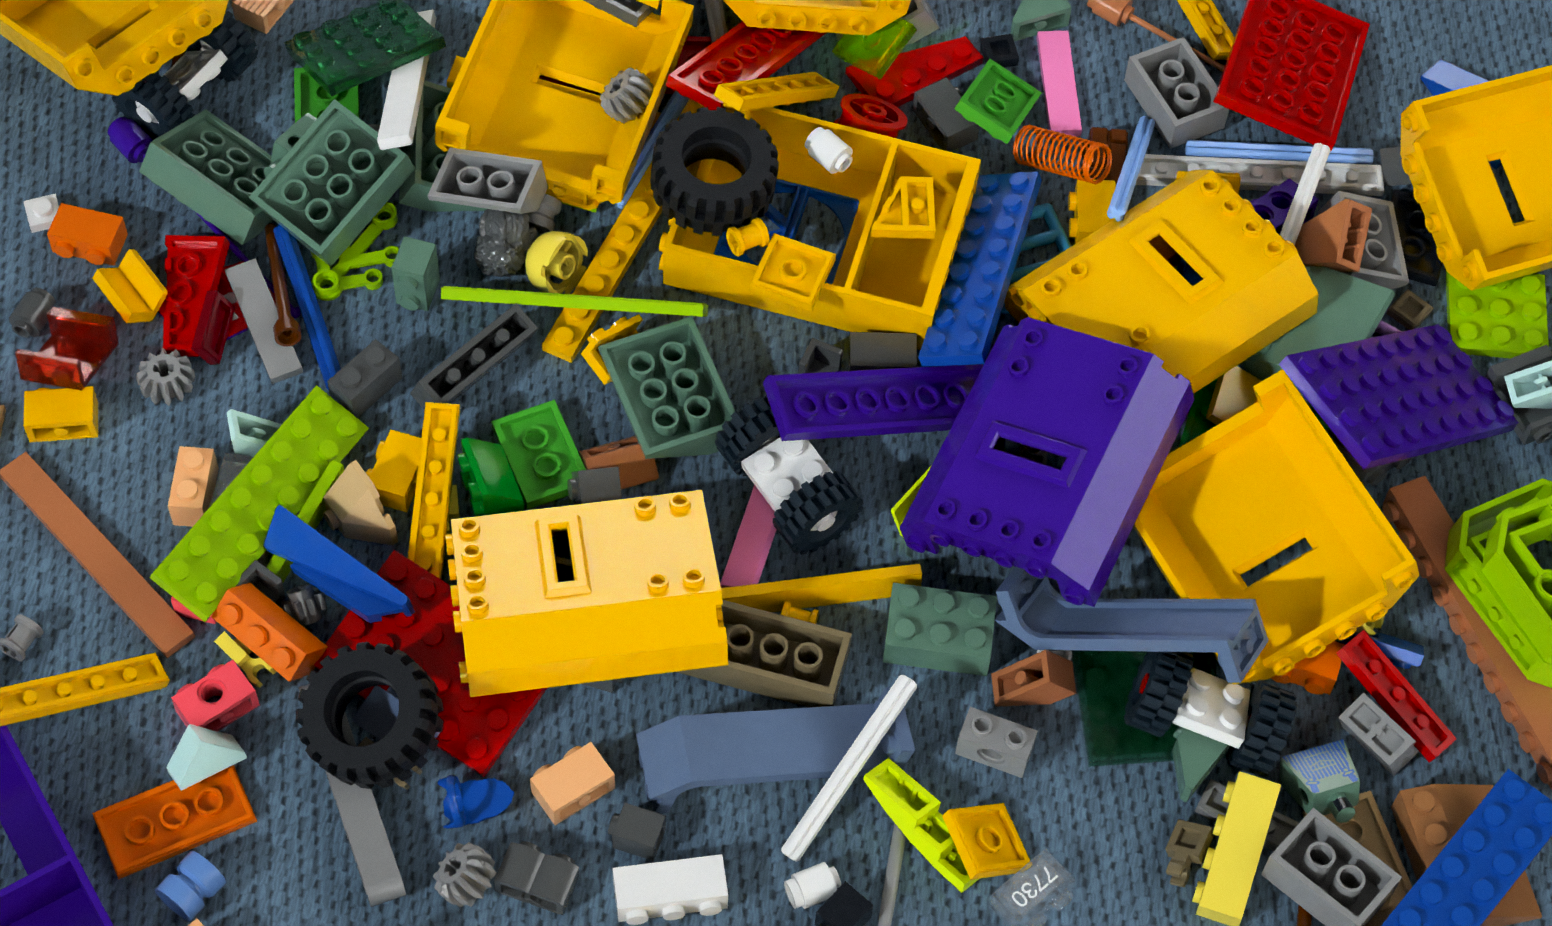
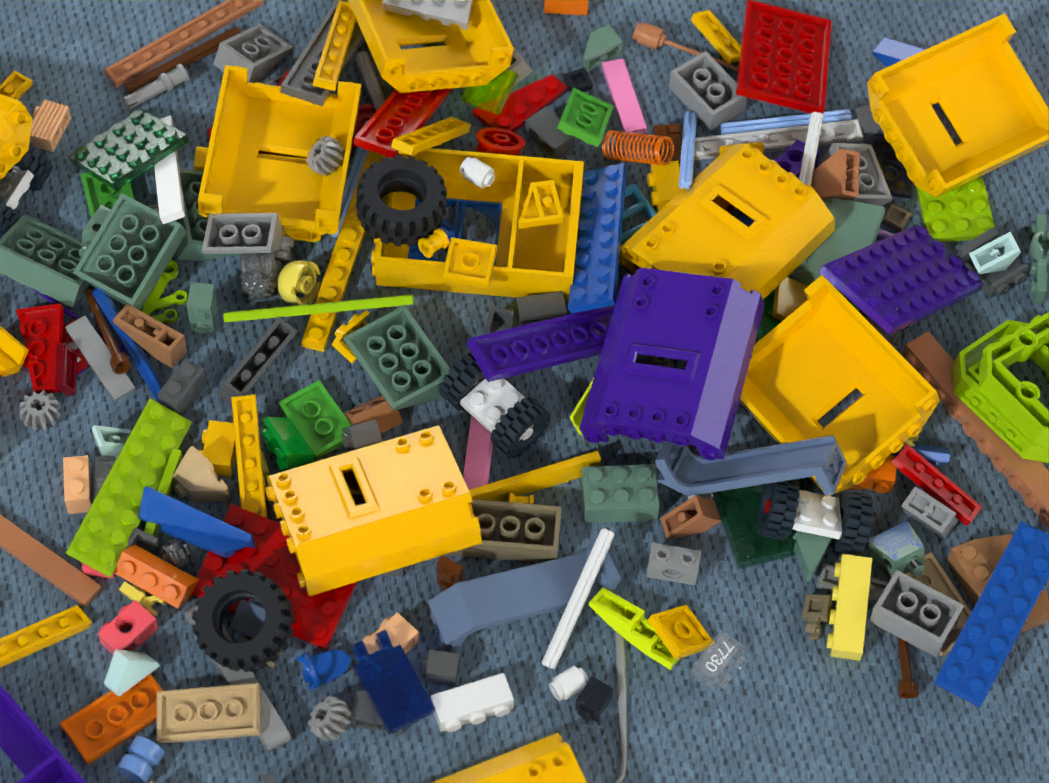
camera: 10 degrees left, 0 degrees up
(298, 836) = (208, 713): none -> tan tile
(339, 300) = (153, 336): none -> medium nougat slope
(561, 843) = (392, 684): none -> clear blue tile
(673, 698) = (448, 573): none -> reddish brown plate

